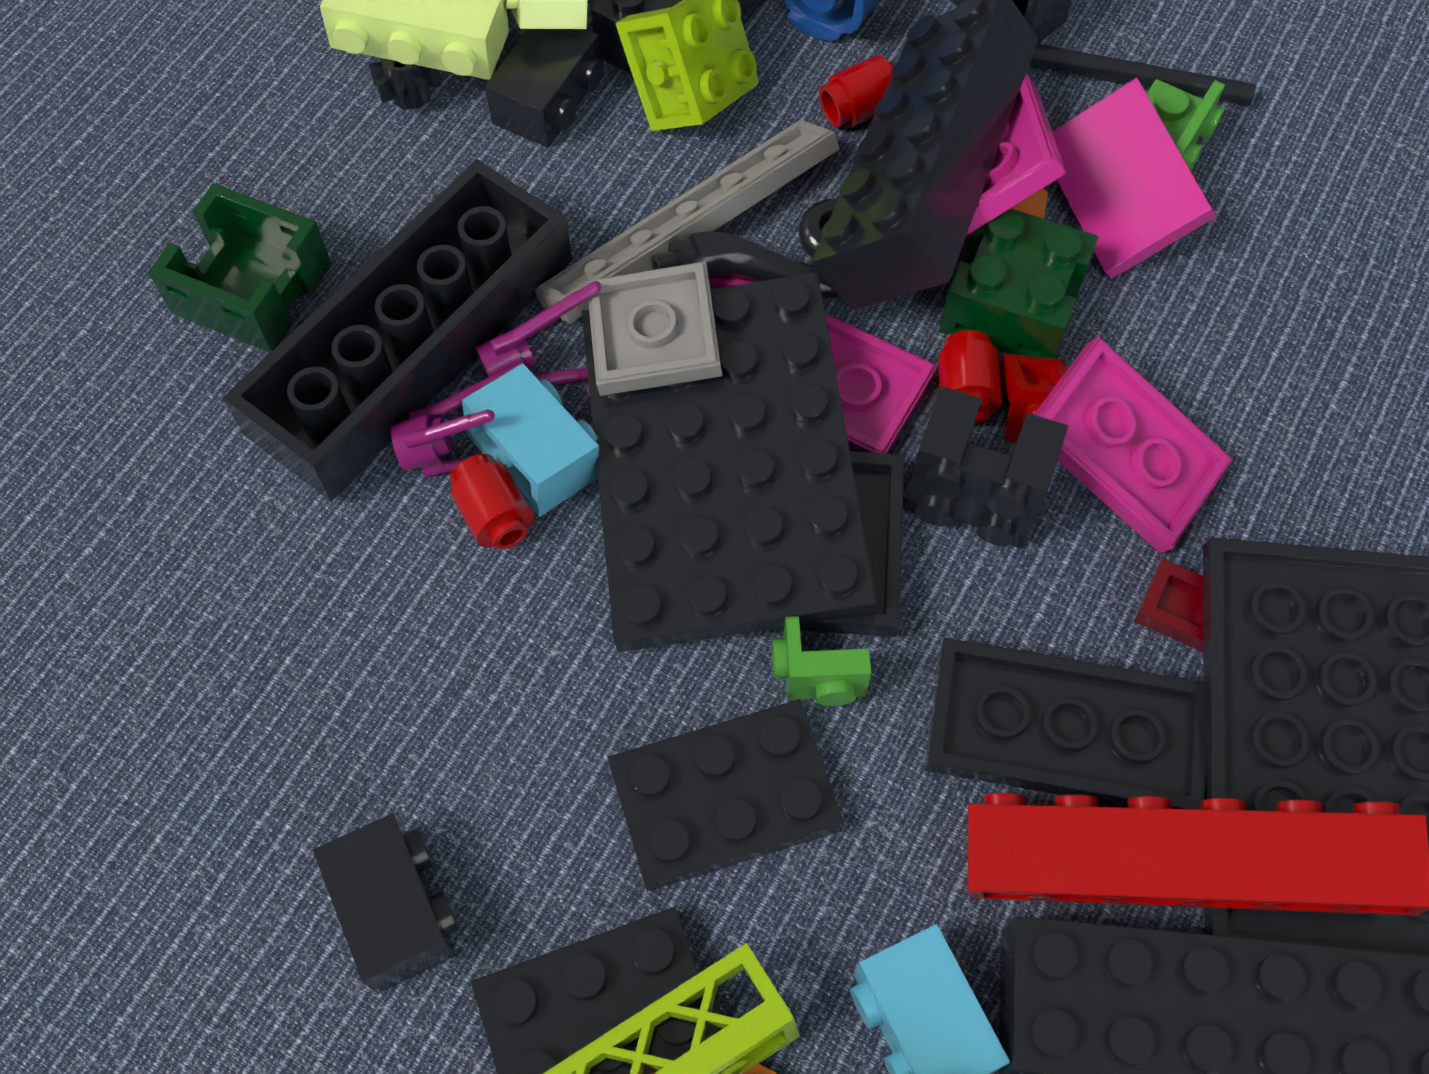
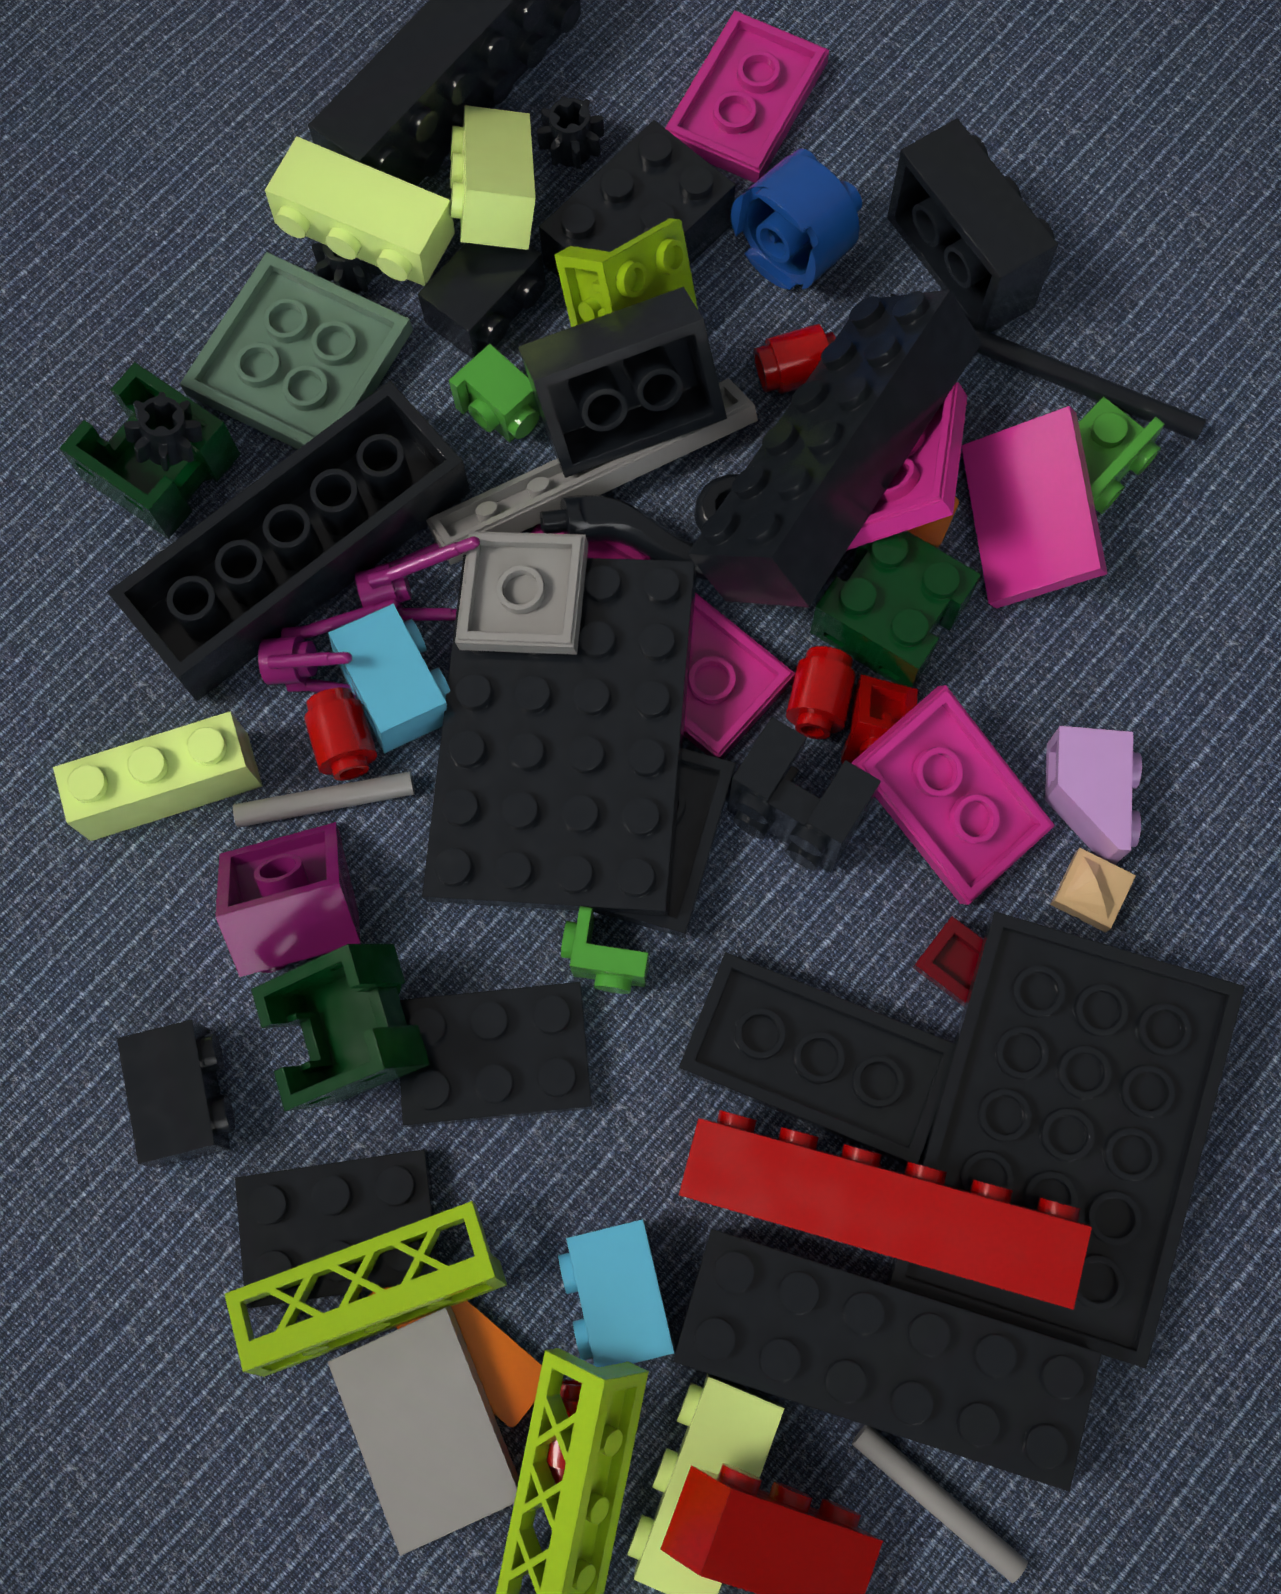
camera: 15 degrees right, 10 degrees up
(256, 234) = (163, 431): none -> black gear
(304, 577) = (157, 776): none -> yellowish green brick
(371, 161) = (295, 353): none -> sand green plate
(471, 677) = (286, 900): none -> magenta slope
(485, 572) = (323, 799): none -> light grey bar
(565, 783) = (348, 1024): none -> dark green piece
(580, 166) = (495, 395): none -> bright green brick
(708, 123) = (624, 381): none -> black brick
(1261, 417) = (1092, 786): none -> lavender slope
(1287, 512) = (1093, 890): none -> tan tile

